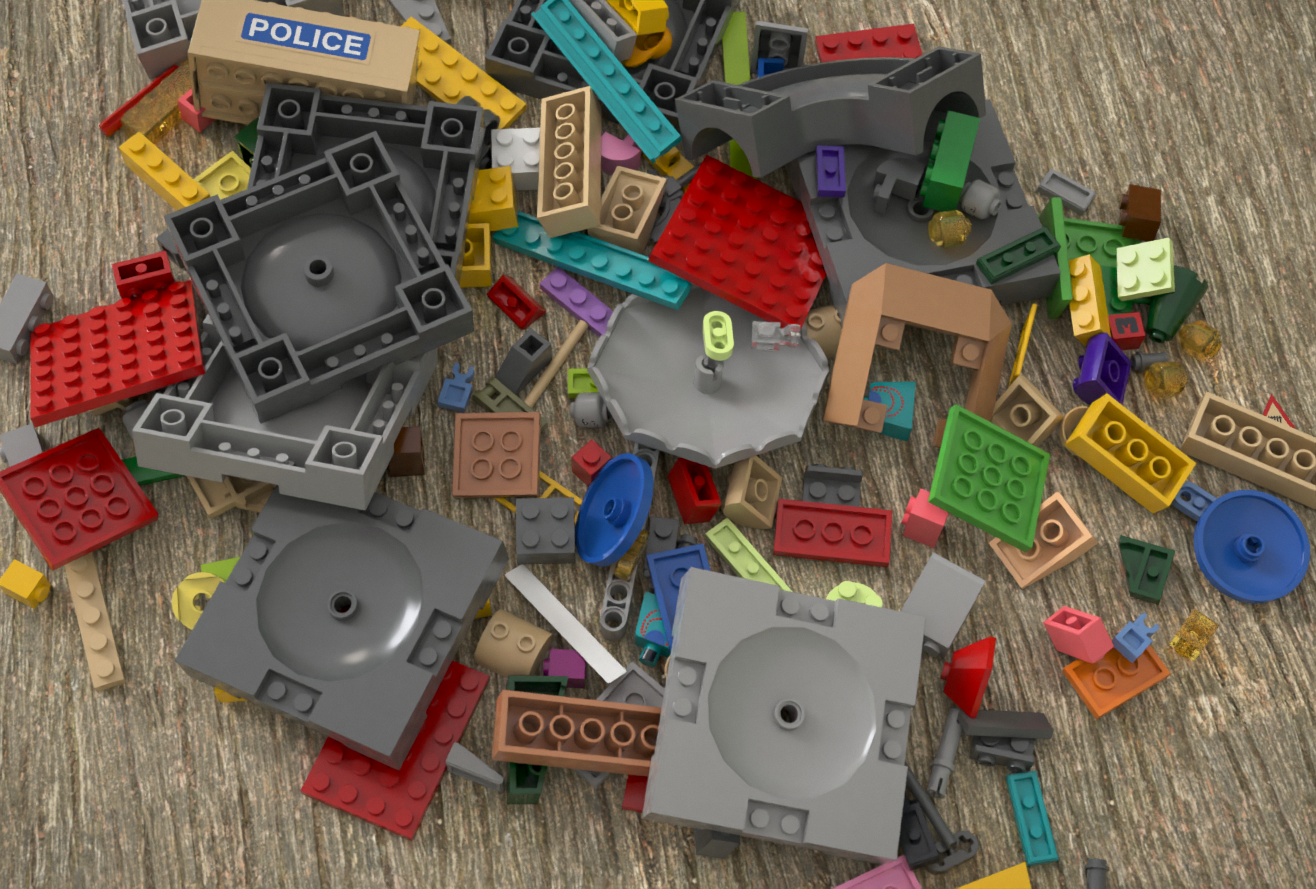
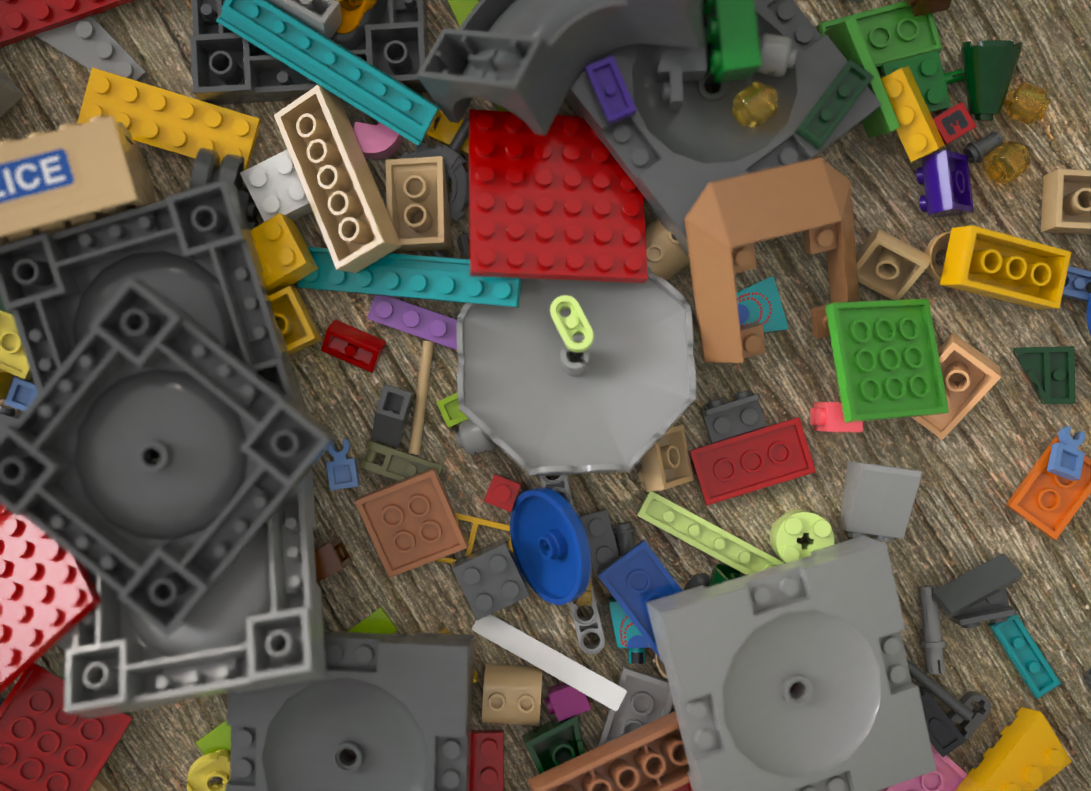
camera: 20 degrees left, 25 degrees up
(693, 491) = (614, 488): red brick -> none
(770, 336) = (620, 299): clear plate -> none
(969, 674) = (934, 559): red slope -> none
(1022, 346) = (865, 193): yellow window -> none
(1078, 634) = (1017, 476): coral brick -> none
(1145, 269) = (957, 53): yellowish green plate -> none

